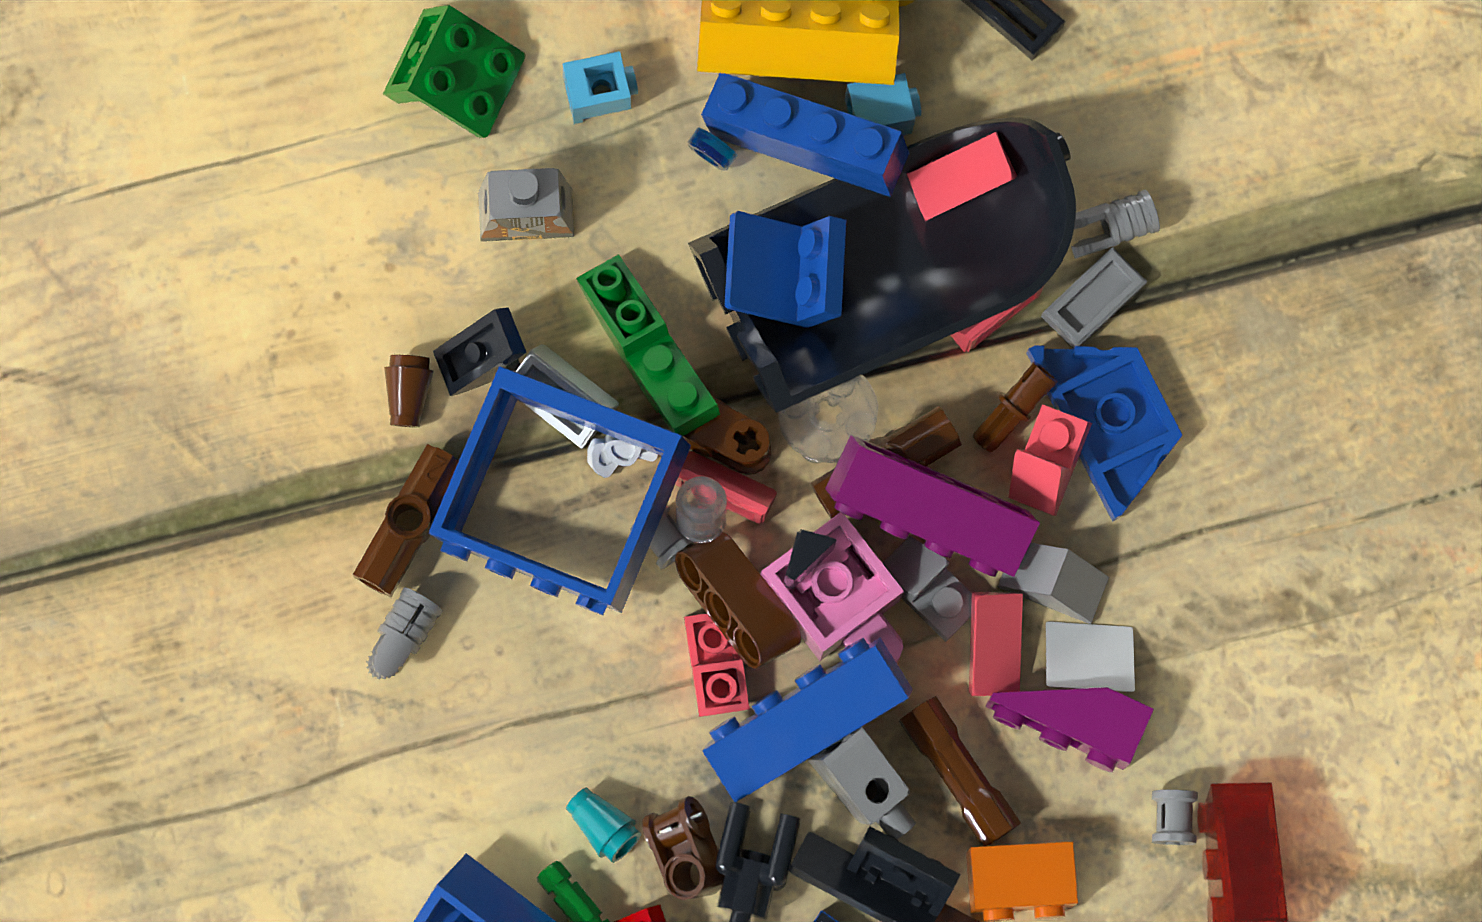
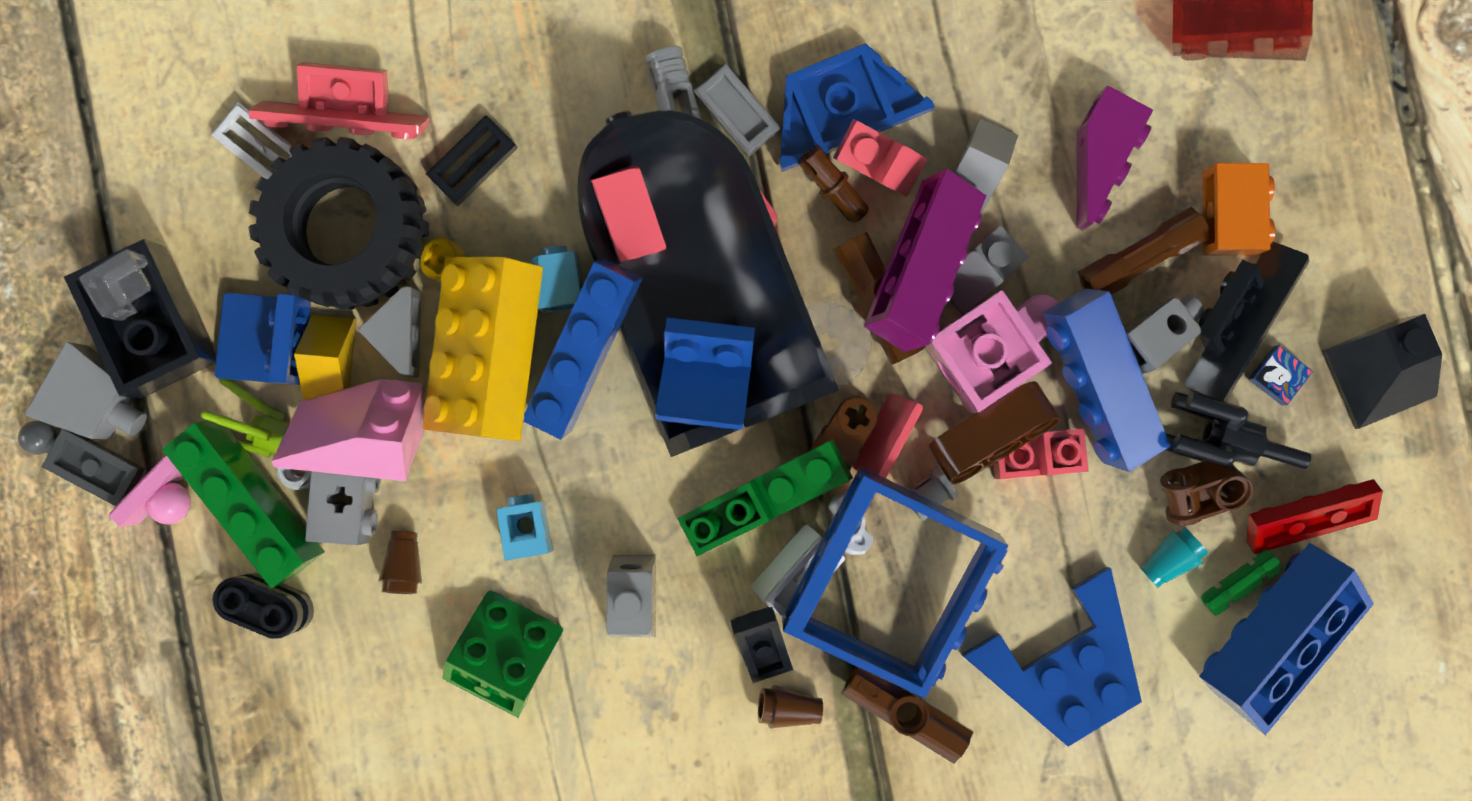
camera: 80 degrees left, 10 degrees up
(393, 646) = (1004, 721): light grey hinge -> none
(451, 723) = (1080, 680): none -> blue wing
(701, 509) = (905, 460): clear brick -> none
(711, 149) = (587, 431): tile -> none
(806, 554) = (976, 372): black slope -> none
(995, 643) = (1037, 217): coral slope -> none
(1089, 656) = (1049, 138): white sticker -> none
(1174, 817) = (1190, 78): light grey bush -> none

